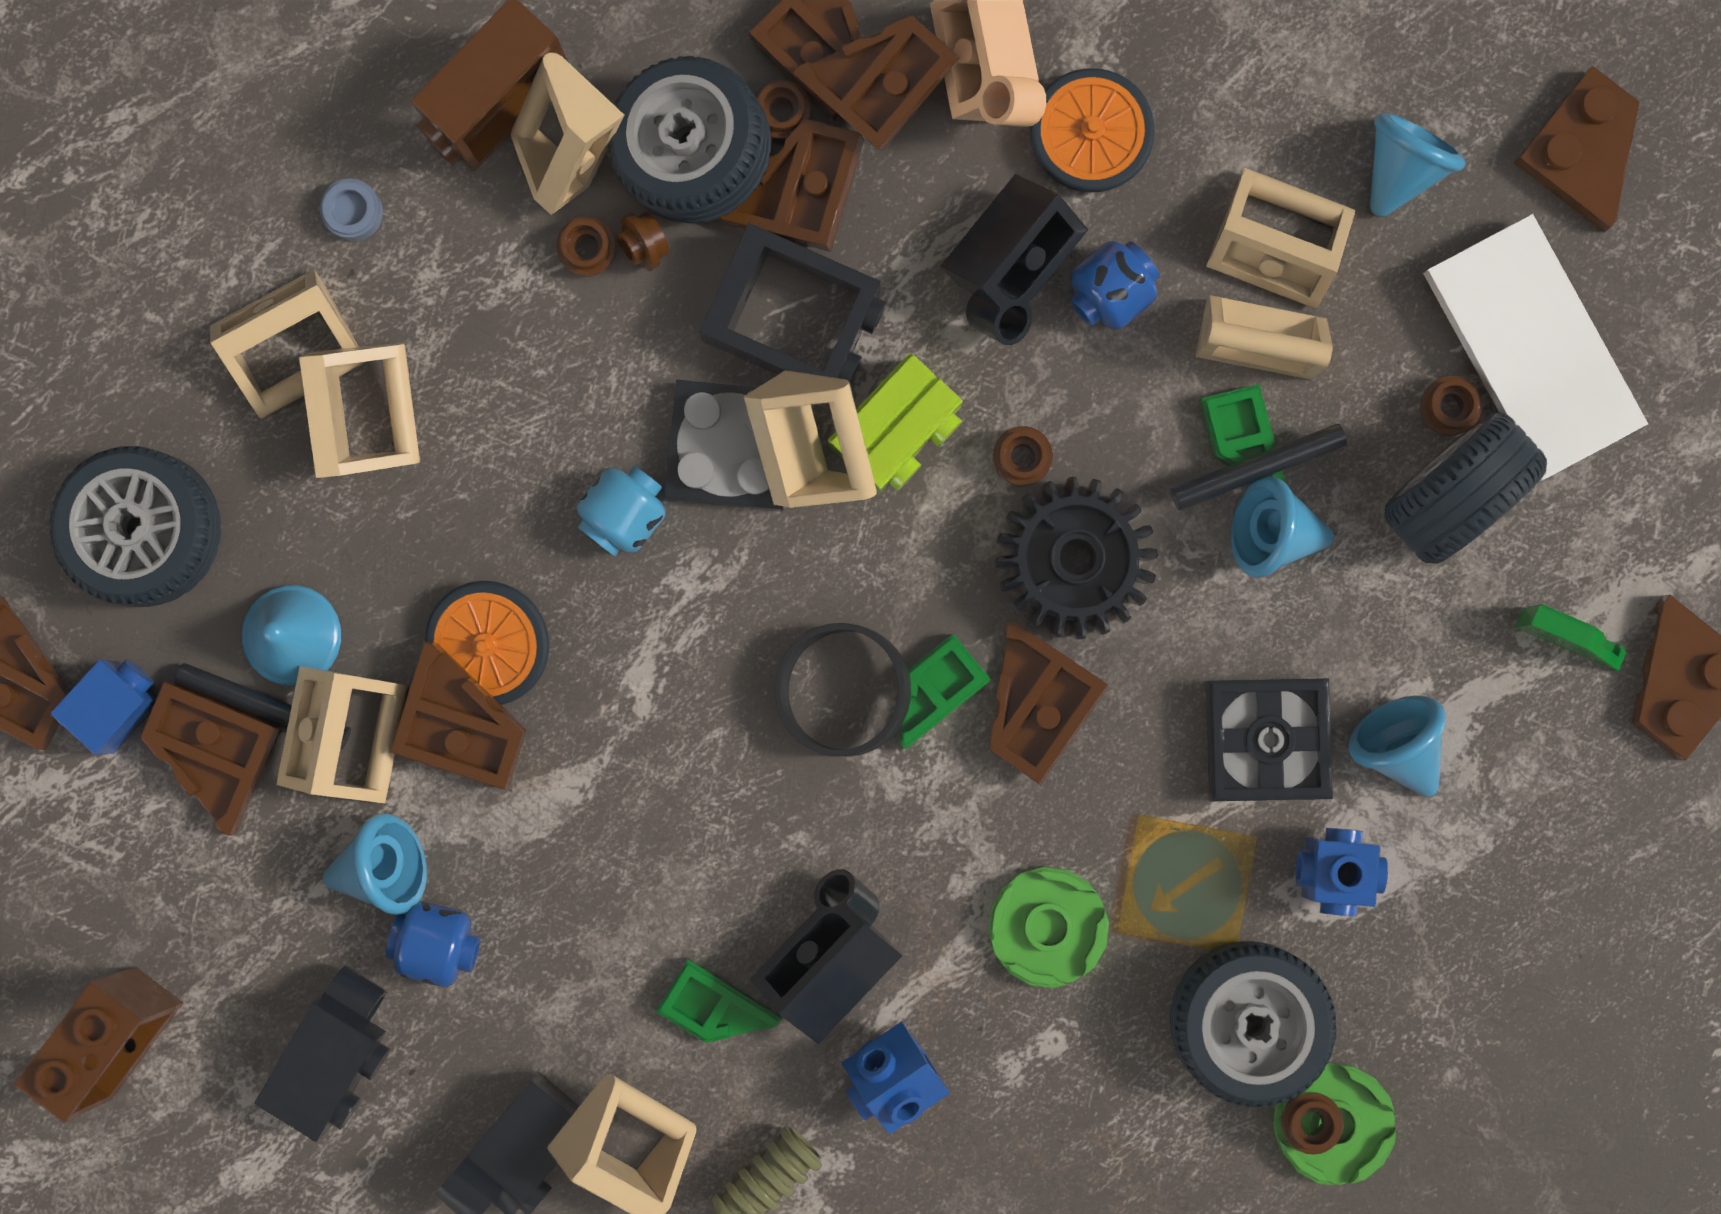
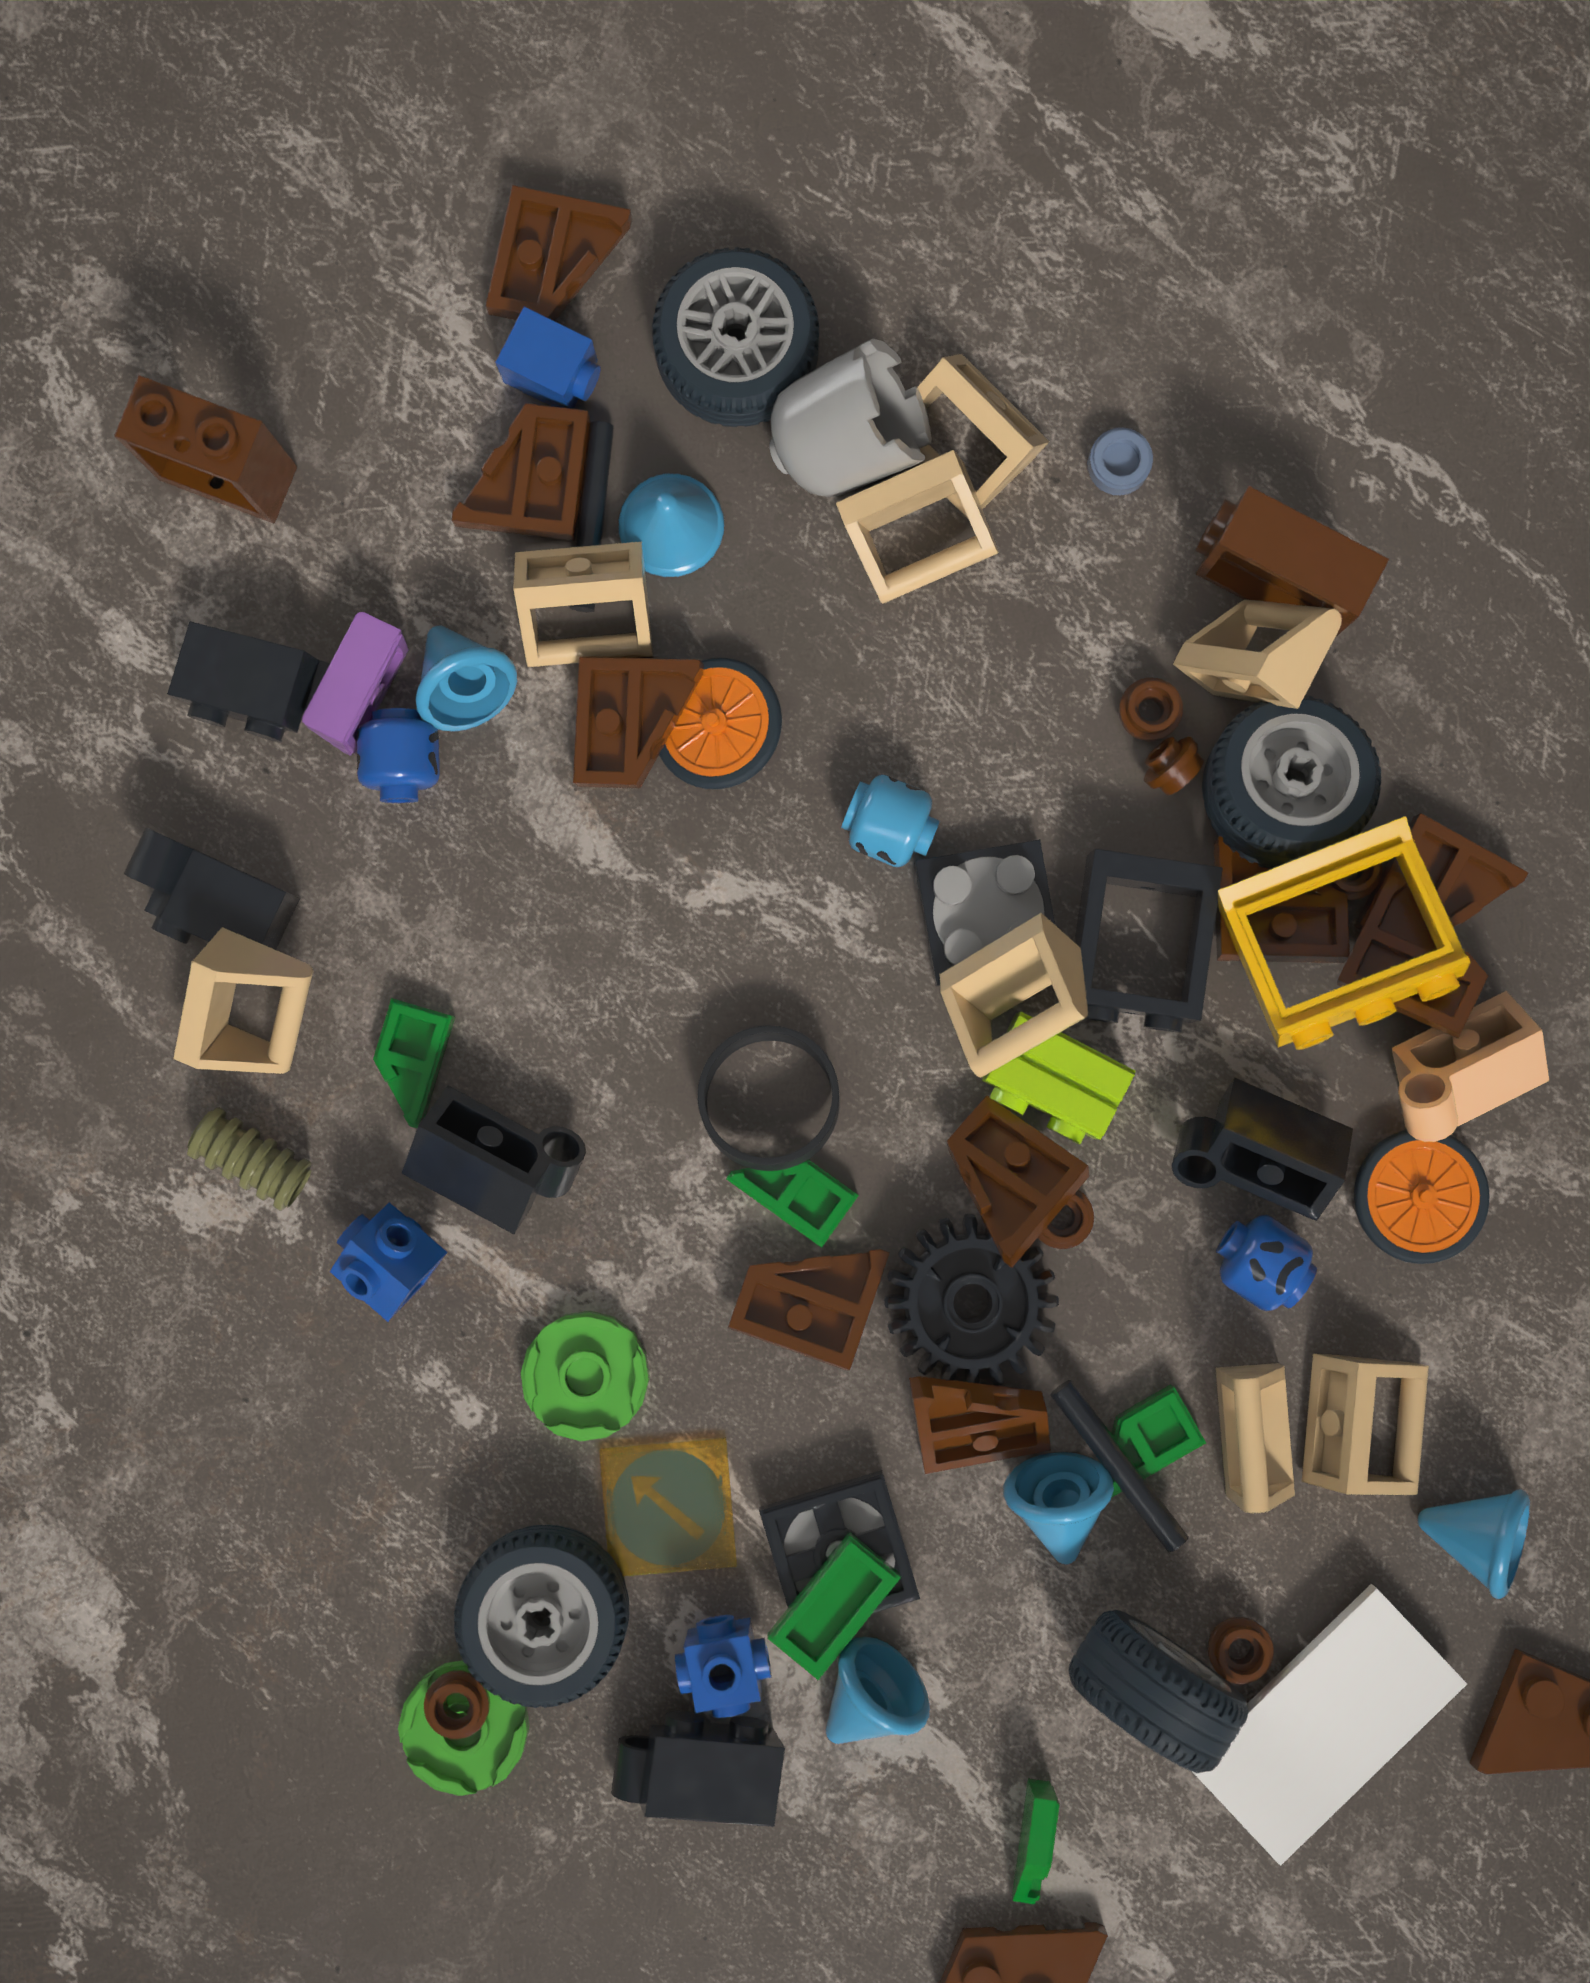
camera: 75 degrees right, 0 degrees up
(246, 445) = (849, 423): none -> light grey cylinder
(353, 964) = (355, 681): none -> medium lavender slope
(901, 126) = (1367, 998): none -> yellow window
(973, 488) = (1013, 1175): none -> reddish brown wing
(1185, 584) = (976, 1422): none -> reddish brown wing
(1314, 757) = (833, 1606): none -> green tile
(1428, 916) = (702, 1770): none -> black hinge

